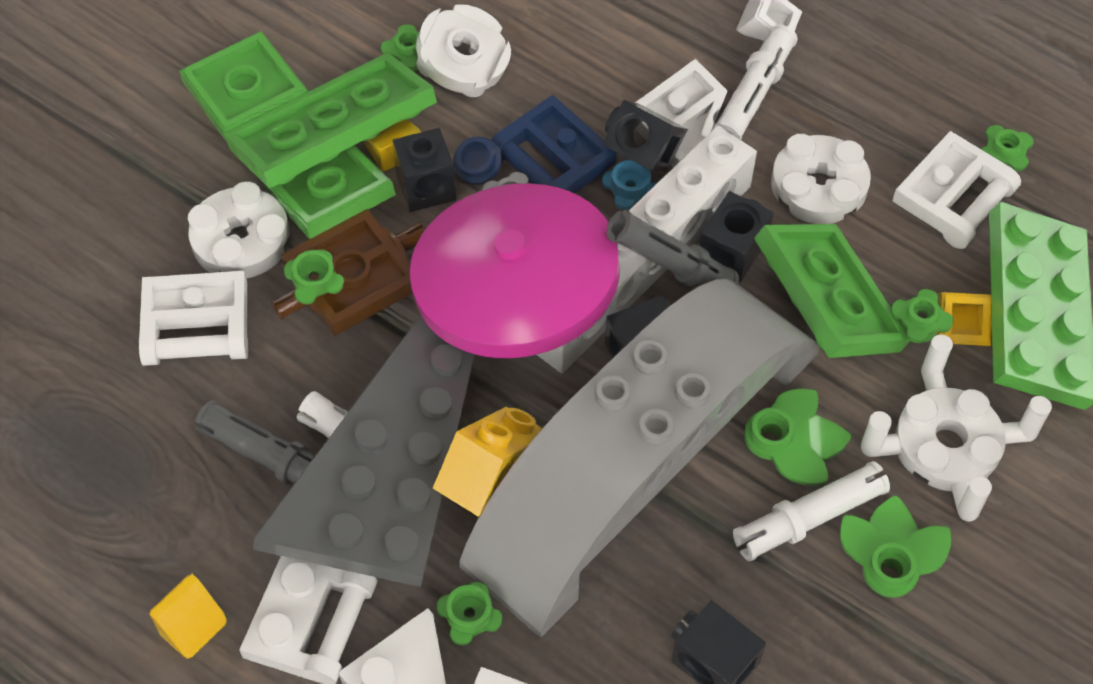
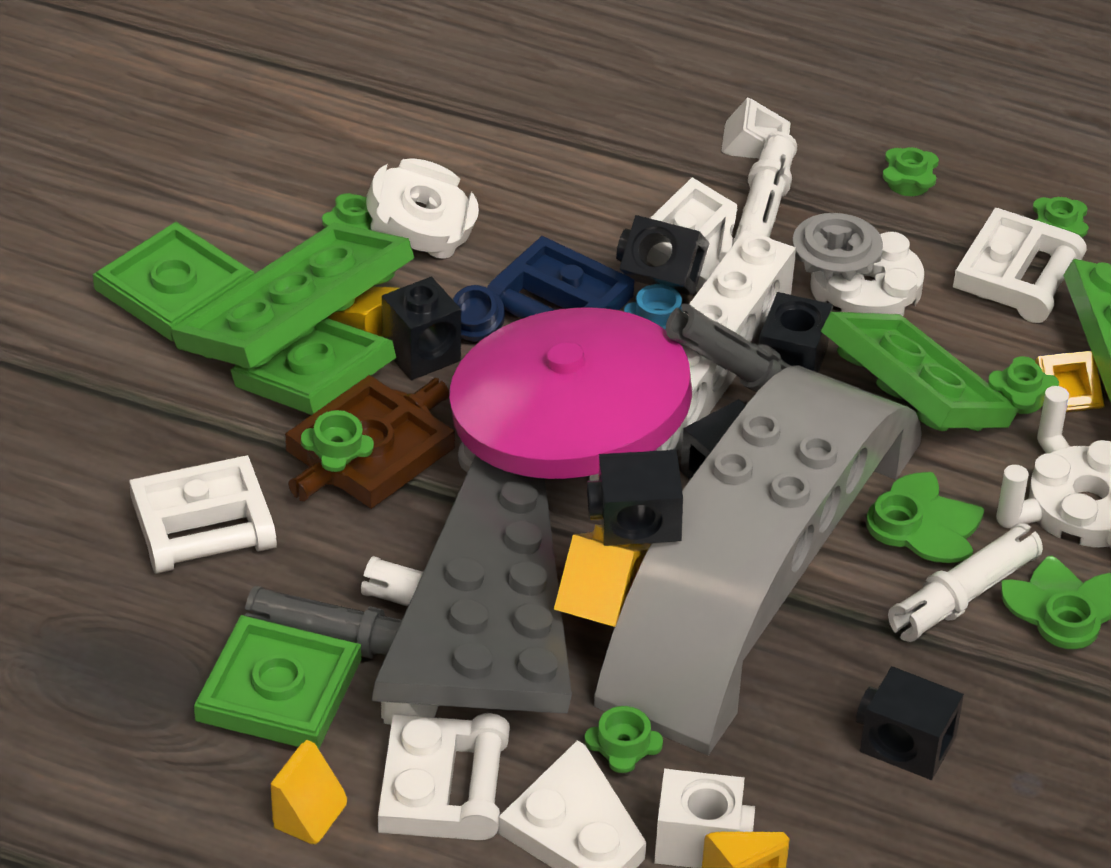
camera: 15 degrees left, 15 degrees down
(201, 498) = (278, 682): none -> bright green plate
(232, 208) = (217, 400): white plate -> none
(513, 414) = (637, 497): none -> black brick
(800, 135) = (837, 231): none -> light grey gear
(889, 77) = (910, 170): none -> bright green plate

